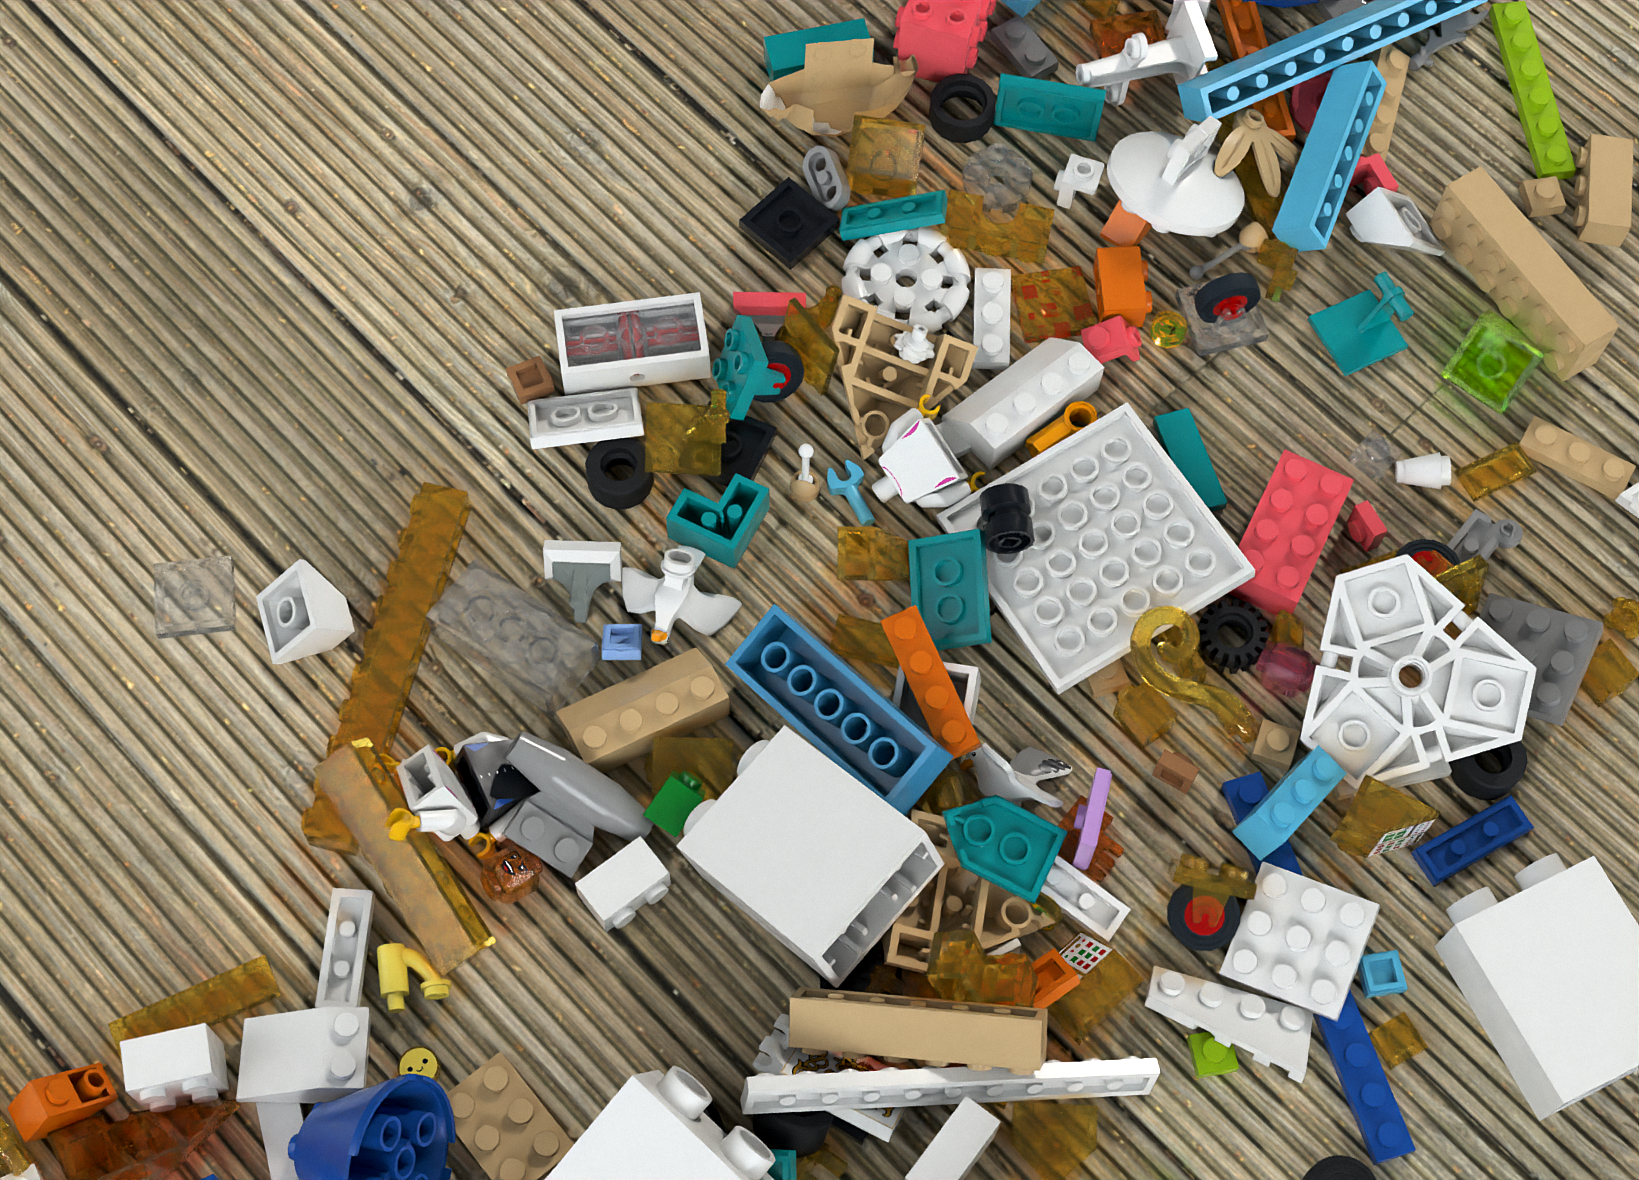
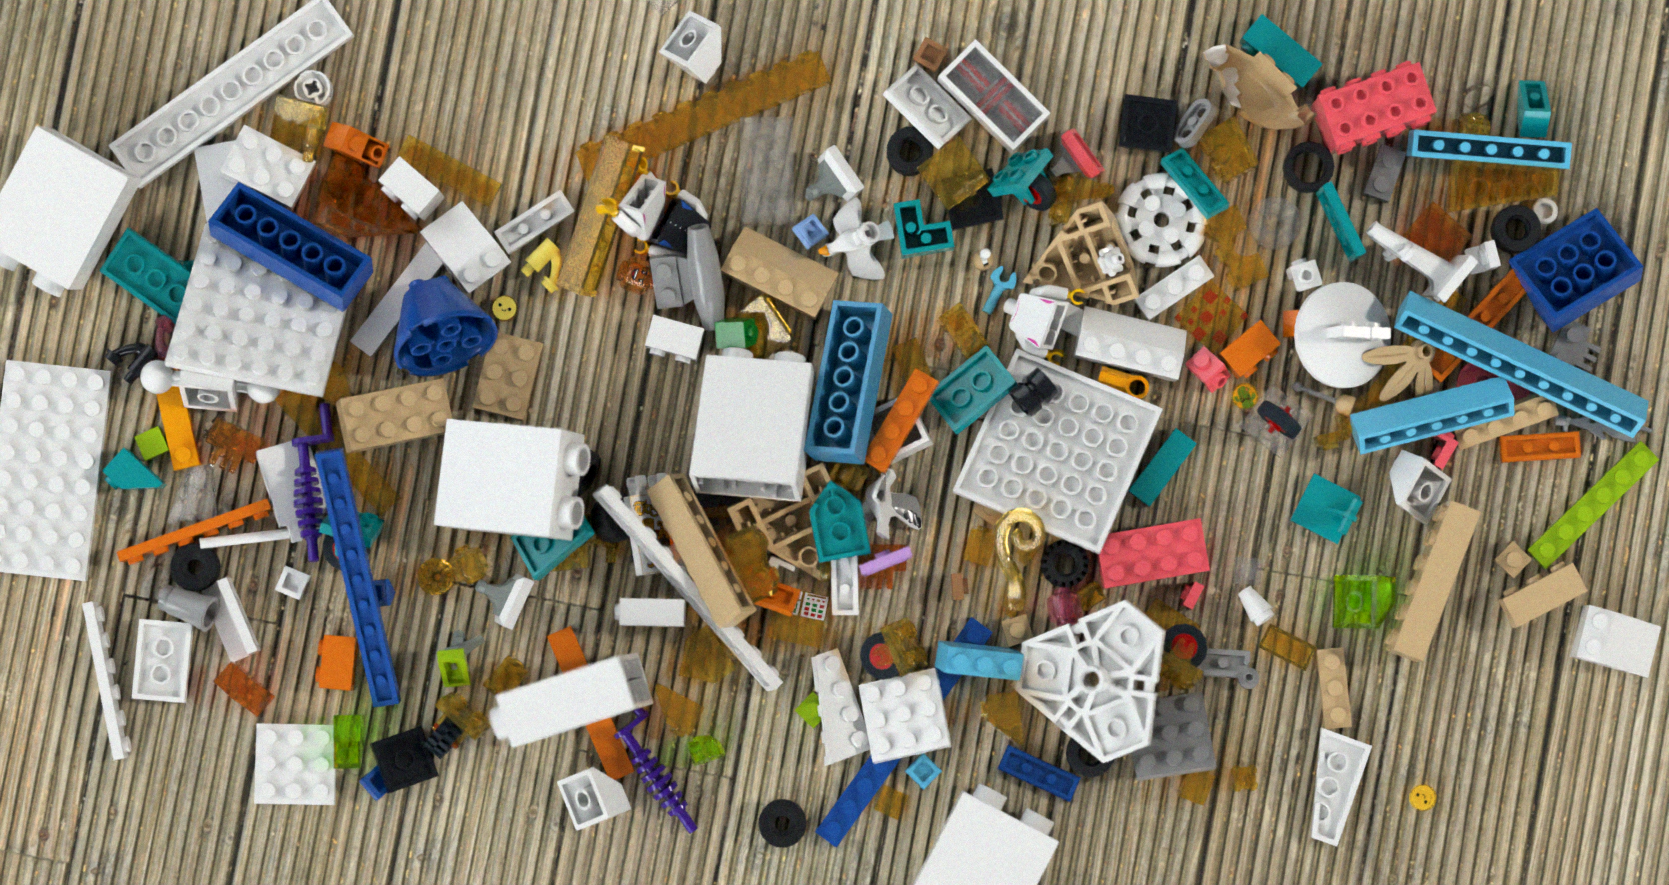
camera: 55 degrees right, 20 degrees up
(1432, 97) = (1539, 447): none -> orange tile

